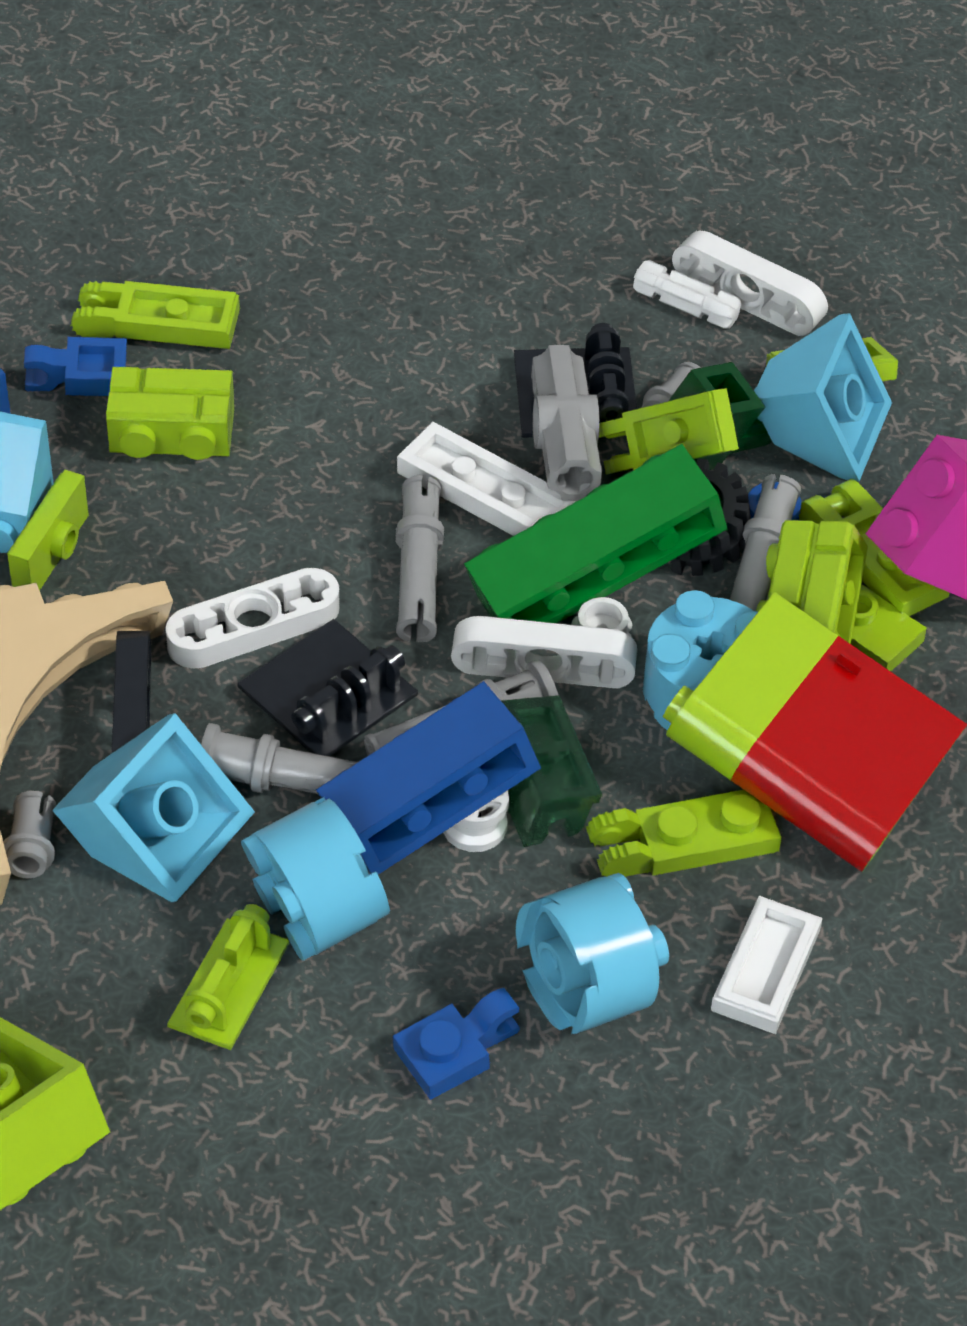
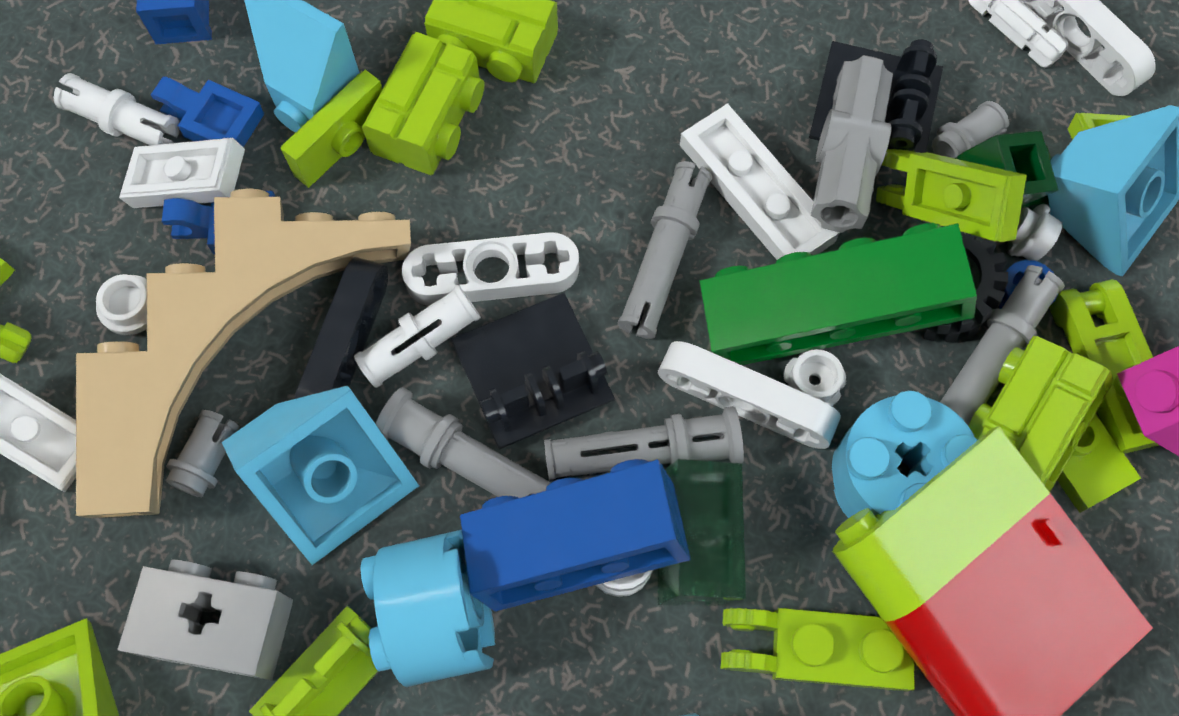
camera: 20 degrees right, 20 degrees up
(100, 959) = (168, 614): none -> light grey brick
(129, 493) = (424, 103): none -> lime brick
(232, 654) = (382, 361): none -> white pin
(759, 459) = (1035, 233): none -> white plate

